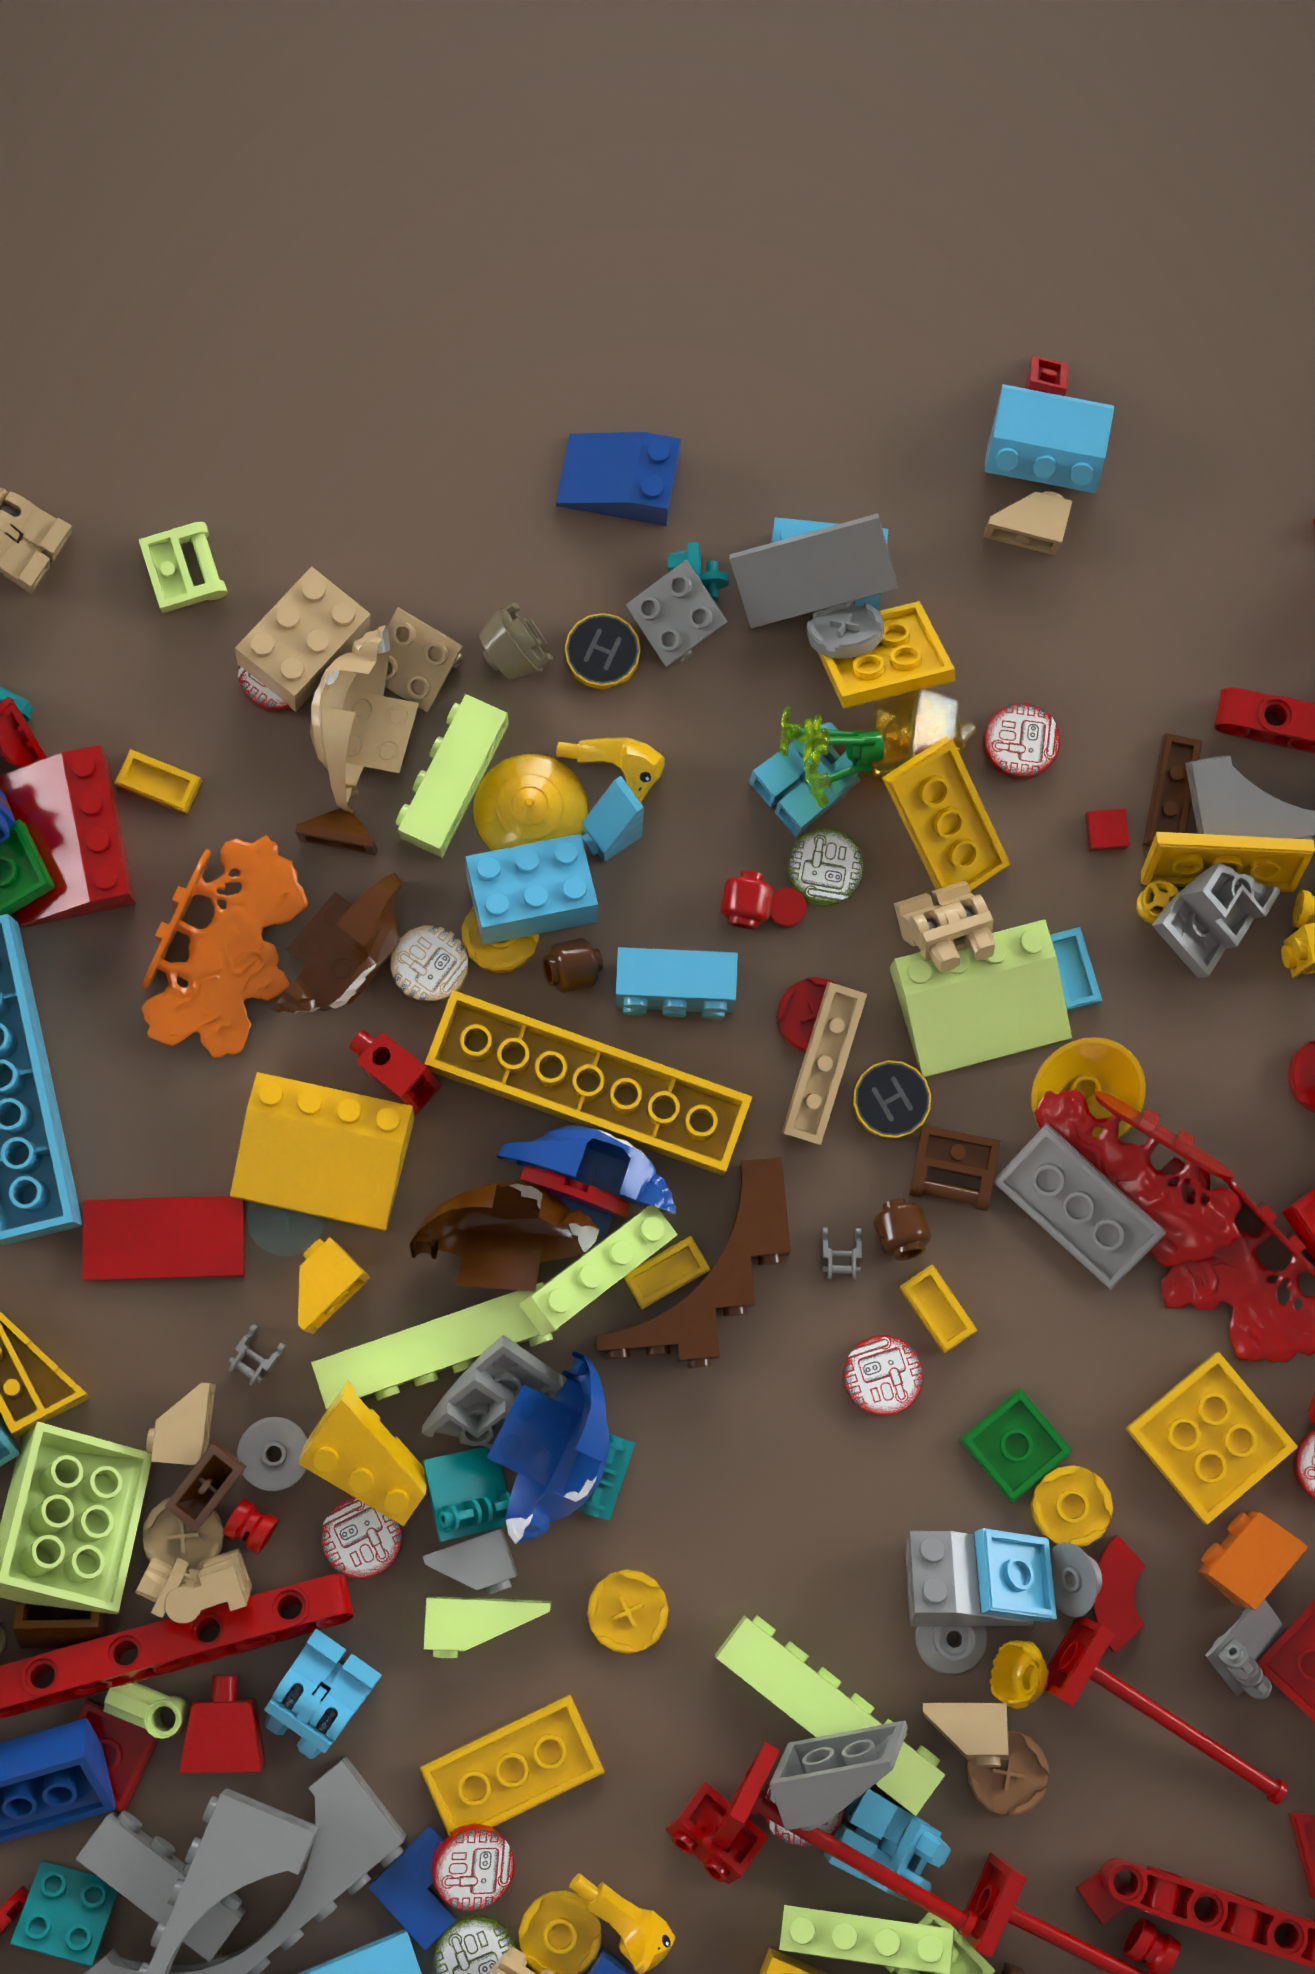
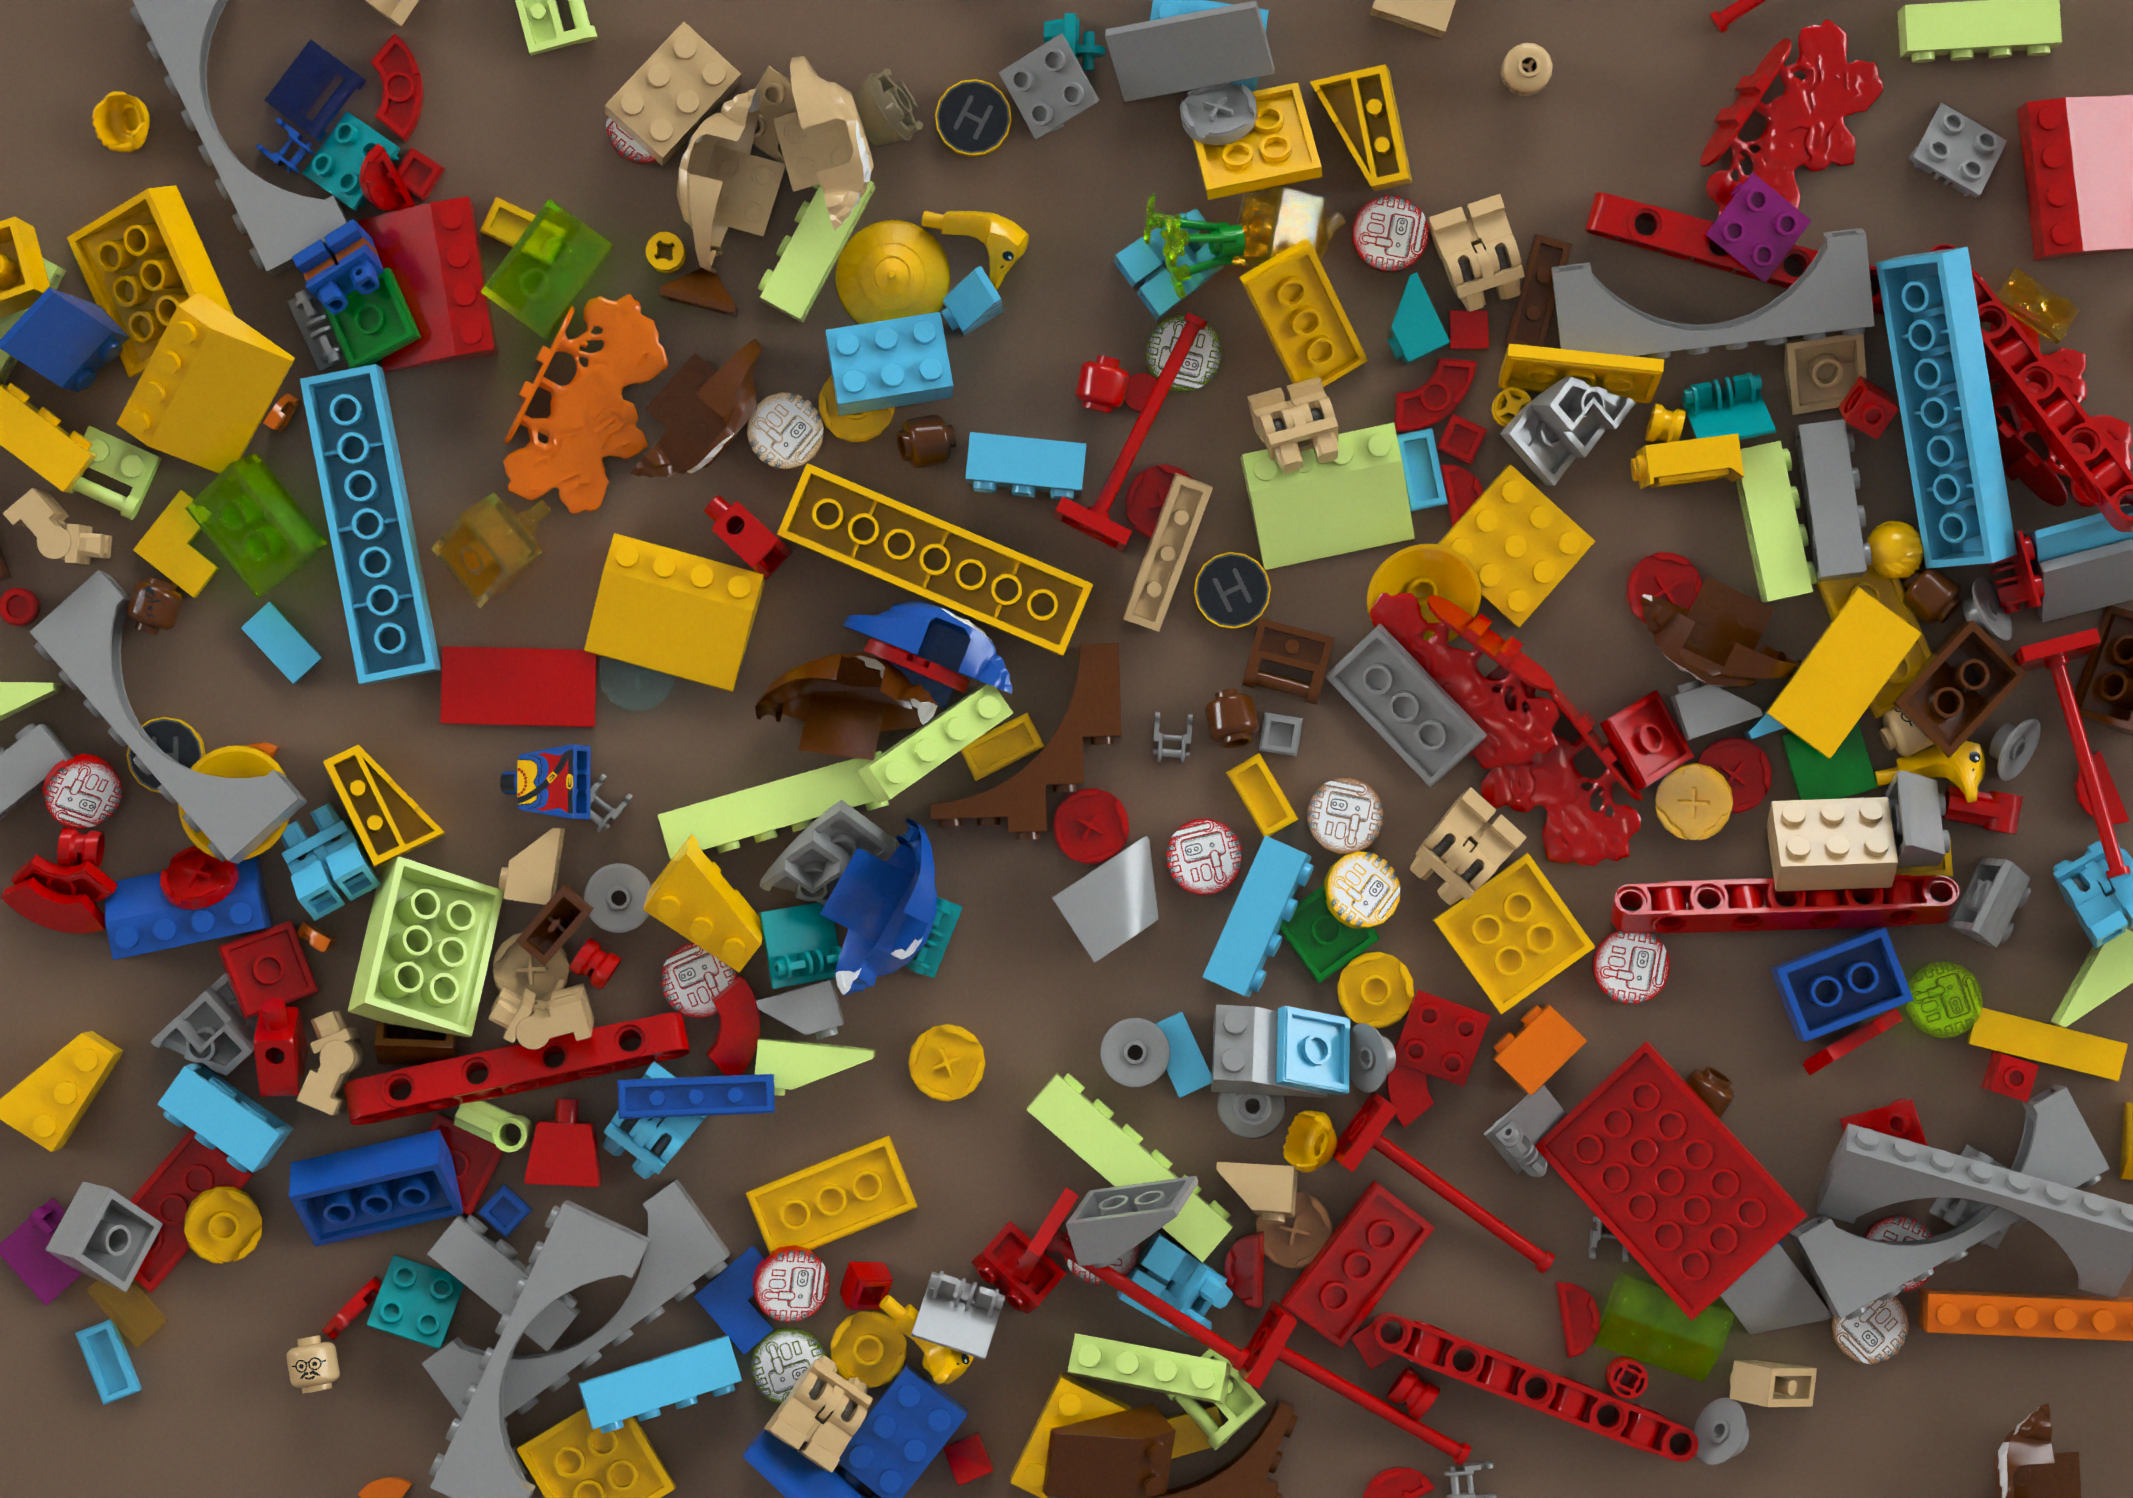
camera: 10 degrees right, 10 degrees up
(34, 650) = (401, 87): none -> red tile
(53, 731) = (419, 173): none -> red tile
(129, 1093) = (491, 547): none -> clear yellow piece
(161, 1803) = (505, 1211): none -> blue tile
(182, 813) = (547, 269): none -> clear neon green slope
(200, 1333) = (552, 781): none -> torso
(306, 801) = (670, 258): none -> yellow wheel
(326, 1283) = (675, 739): yellow slope -> none
(362, 1664) = (696, 1096): none -> blue tile
(404, 1588) = (738, 1028): none -> red tile
(457, 671) = (825, 141): none -> tan animal
(553, 1863) = (865, 1285): none -> red slope
(656, 1892) = (958, 1315): none -> light grey hinge
(748, 1034) = (1095, 519): none -> red tile
(763, 1350) = (1091, 826): none -> red tile
(791, 1427) = (1112, 901): none -> light grey slope
(846, 1592) = (1135, 1071): none -> light grey piece
(873, 1587) = (1186, 1063): none -> medium azure tile
(944, 1435) = (1257, 917): none -> medium azure brick
(952, 1244) = (1280, 734): none -> light grey tile
(960, 1819) = (1246, 1269): none -> red tile
(993, 633) = (1369, 122): none -> yellow wedge
(1025, 1324) = (1345, 815): none -> tile
(1050, 1401) = (1362, 890): none -> tile
(1056, 825) = (1415, 325): none -> teal slope
(1078, 1808) = (1357, 1264): none -> red tile
(1081, 897) = (1436, 397): none -> red tile
(1110, 937) = (1461, 439): none -> red tile
(1111, 750) = (1478, 251): none -> tan hips
(1119, 997) = (1461, 490): none -> red tile
(1143, 576) = (1528, 82): none -> tan head
(1147, 1553) = (1441, 1037): none -> red hinge
(1155, 1349) = (1466, 847): none -> tan hips
(1178, 1037) = (1517, 544): none -> yellow plate

